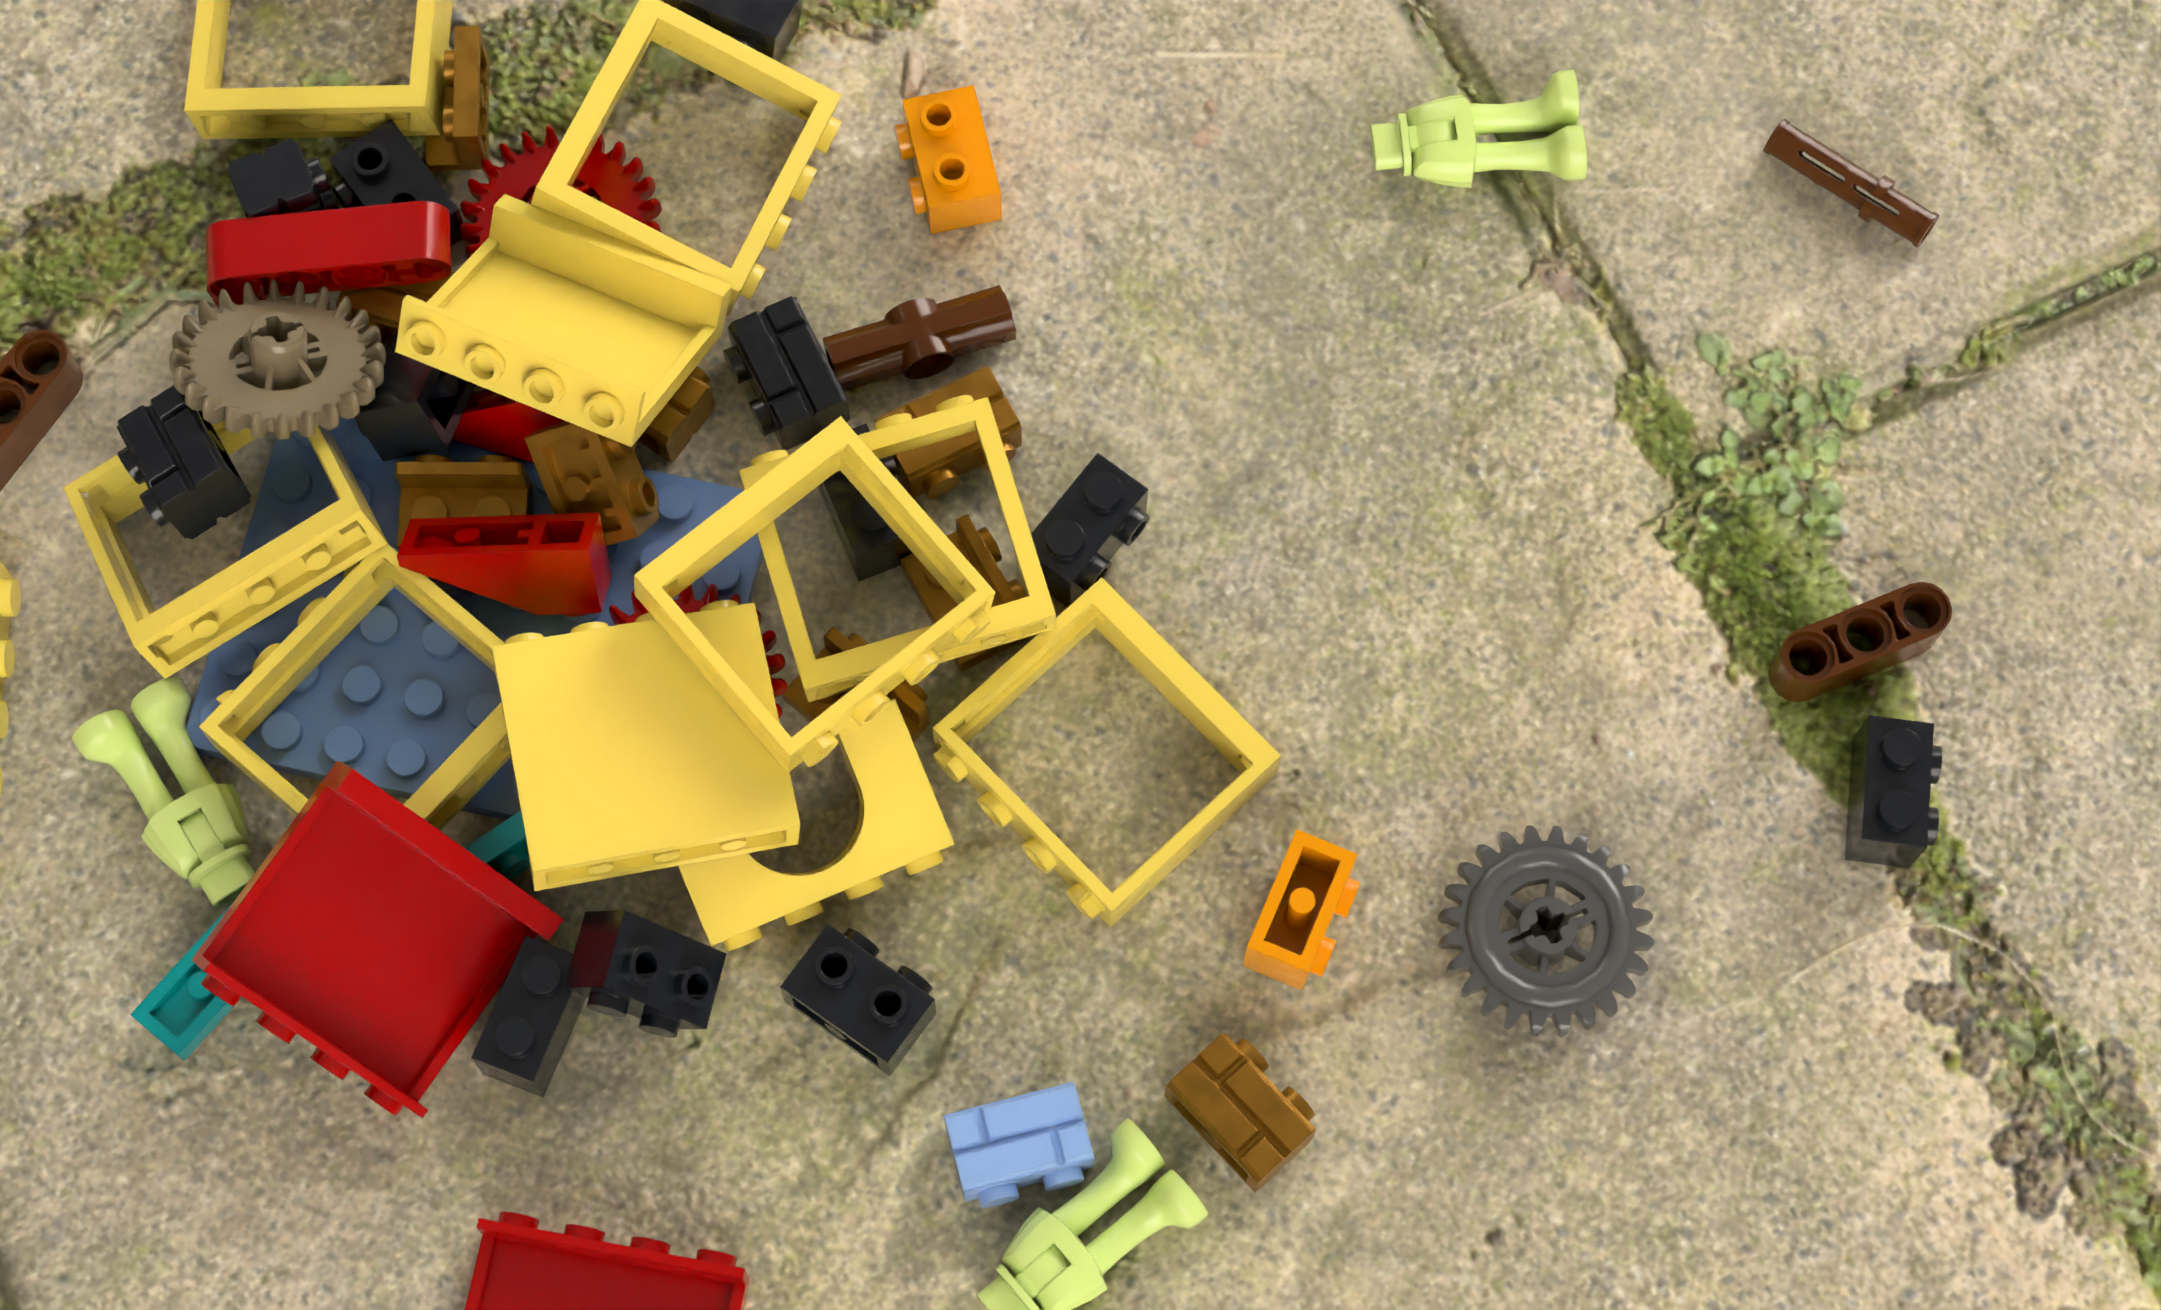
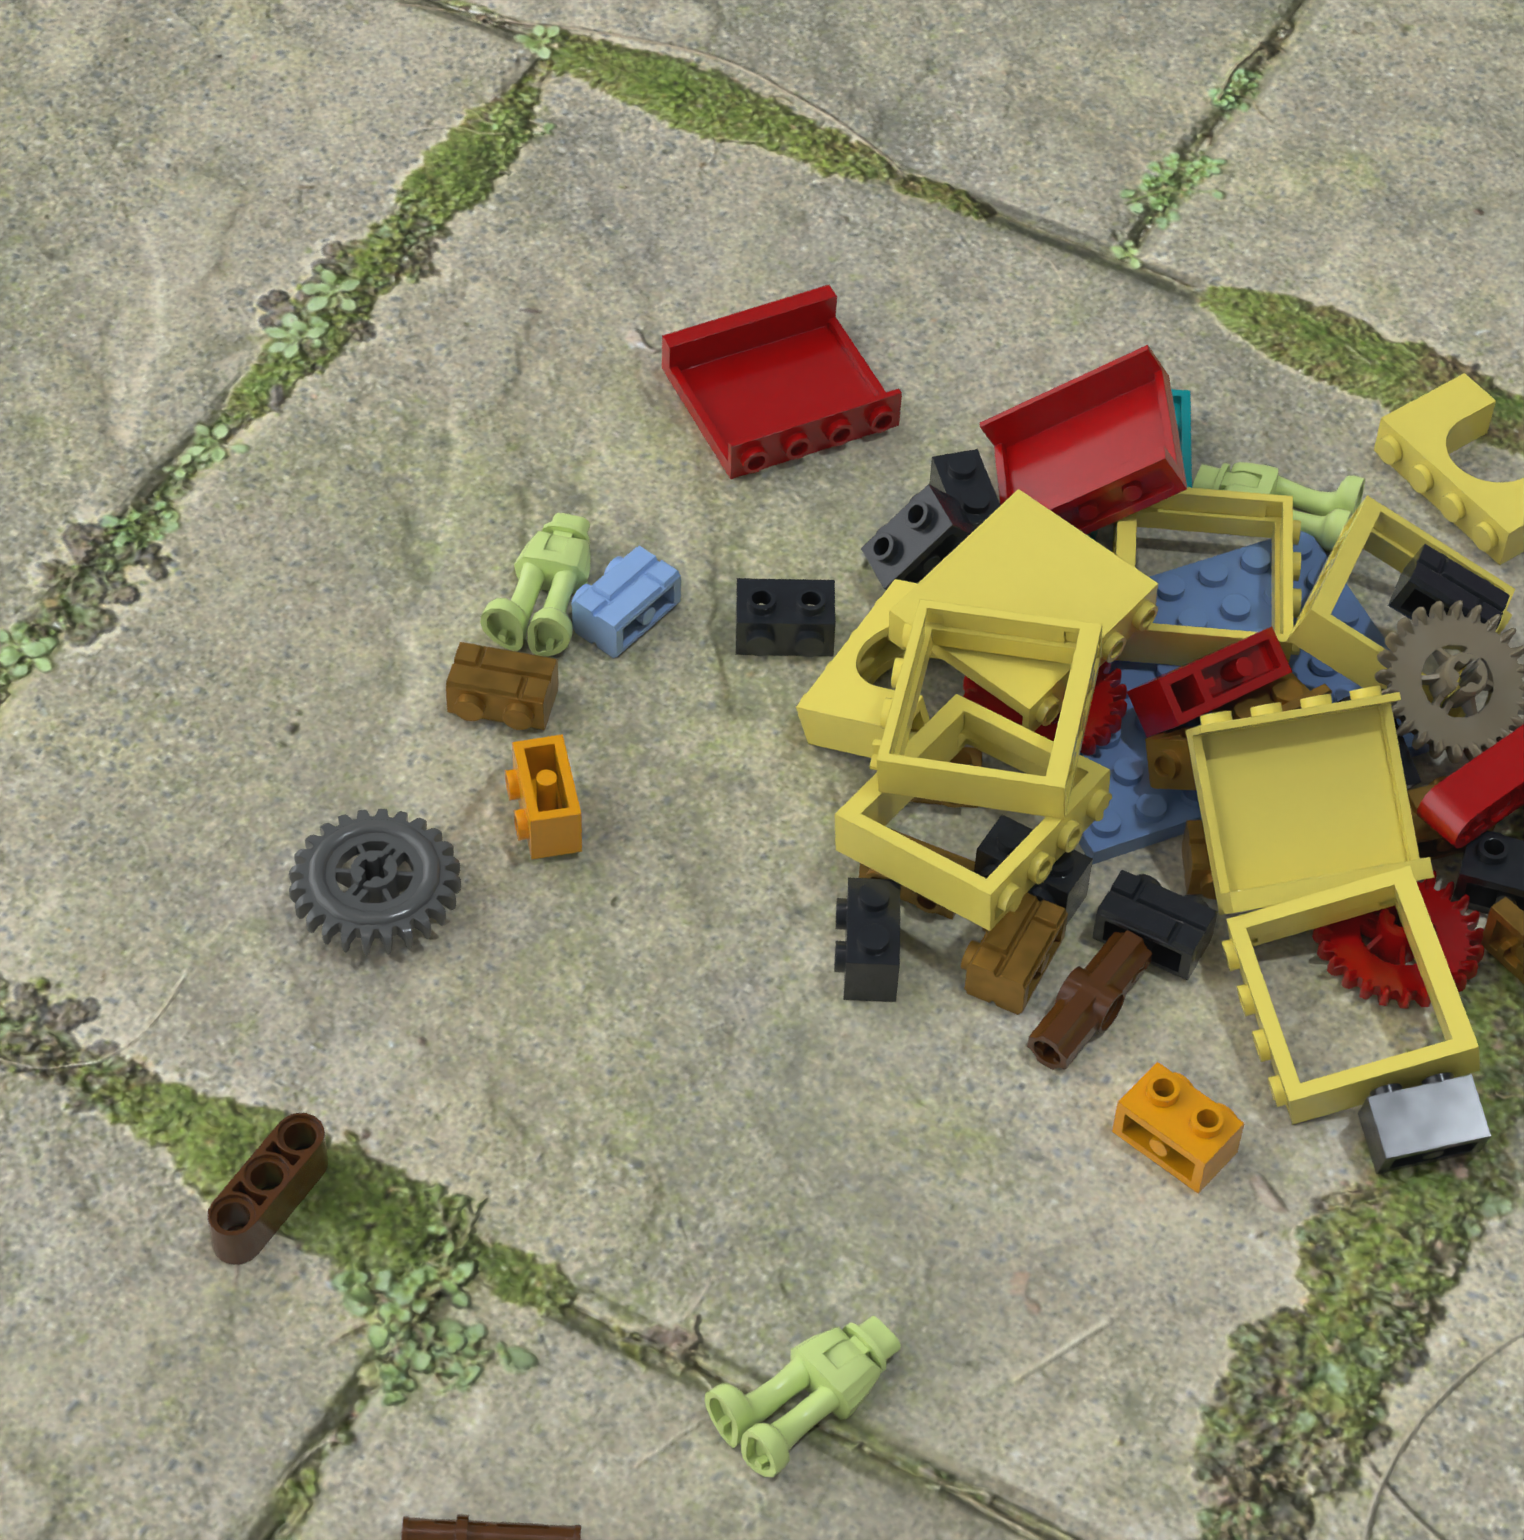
camera: 145 degrees right, 20 degrees down
(1173, 677) = (728, 888): light yellow window -> none
(1891, 792) = (185, 1097): black brick -> none

